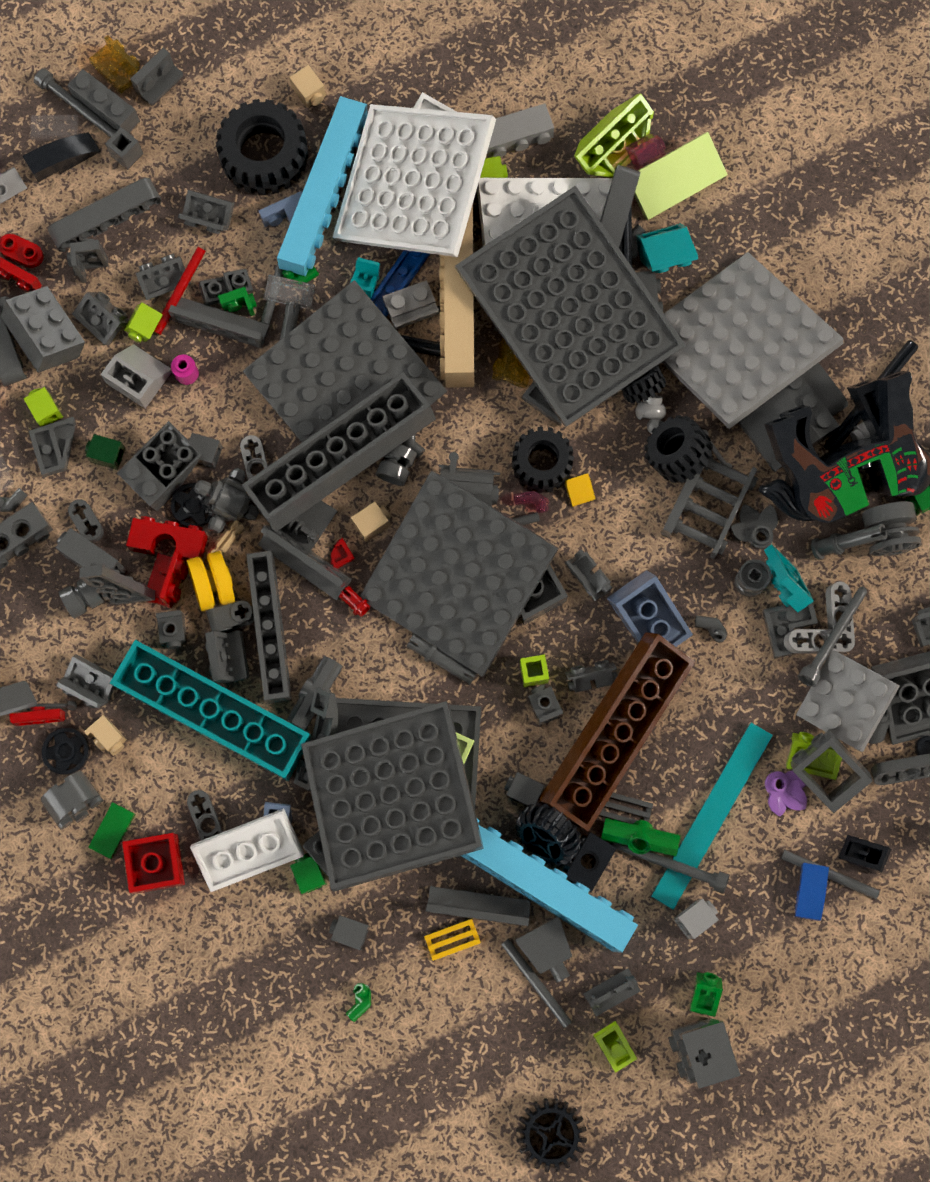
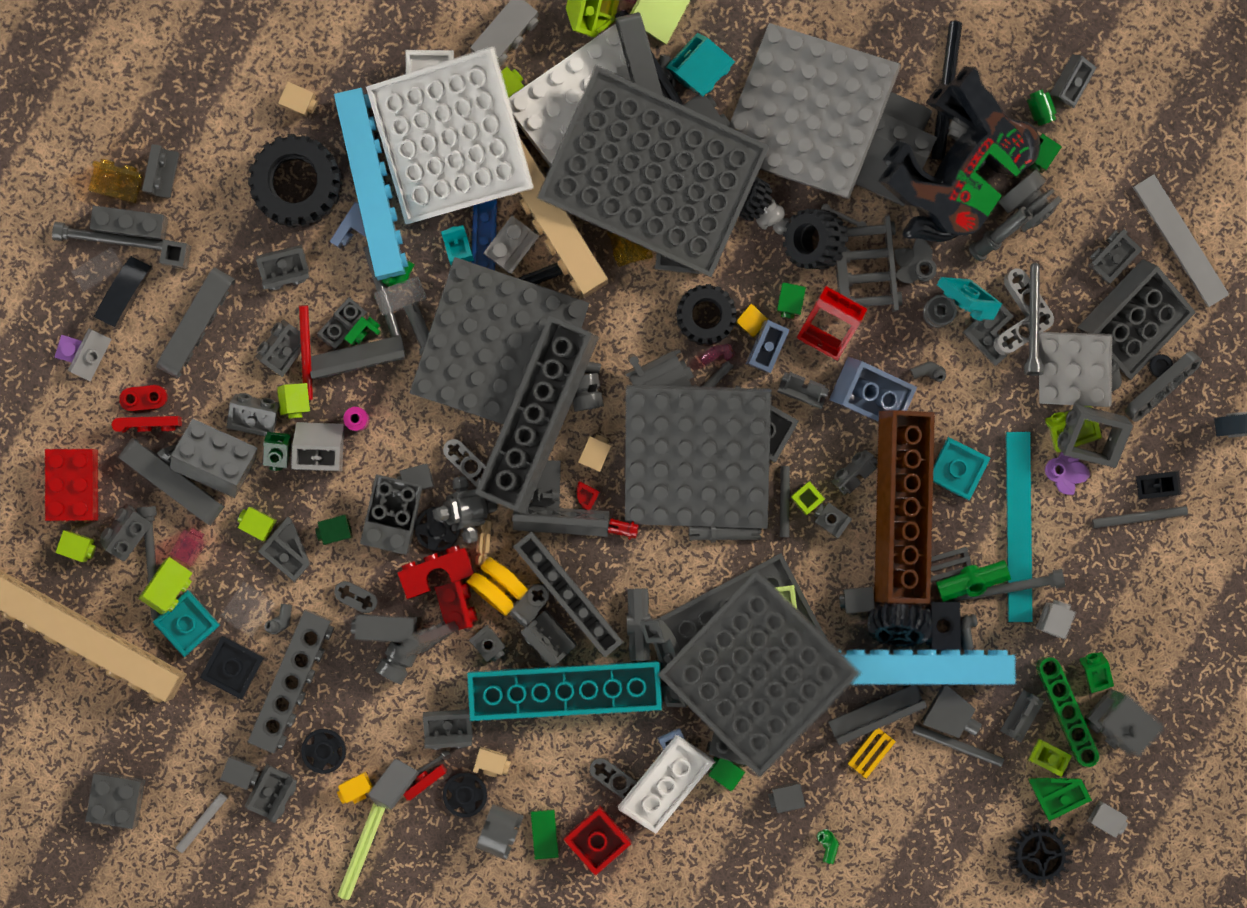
camera: 30 degrees left, 10 degrees up
(86, 255) = (208, 369): dark grey bracket -> none
(102, 350) = (276, 450): none -> dark green brick
(512, 664) = (784, 500): none -> dark grey bar
(579, 518) = (767, 346): none -> sand blue brick
(603, 1089) = (1059, 795): none -> green wing
(605, 880) = (966, 635): none -> dark grey arm
(624, 492) = (790, 300): none -> green brick
(636, 1141) = (1108, 819): none -> light grey brick
(661, 1026) = (1075, 720): none -> green beam
(666, 519) = (840, 307): none -> red window
(687, 728) = (959, 468): none -> teal plate
(811, 891) = (1133, 541): blue slope -> none

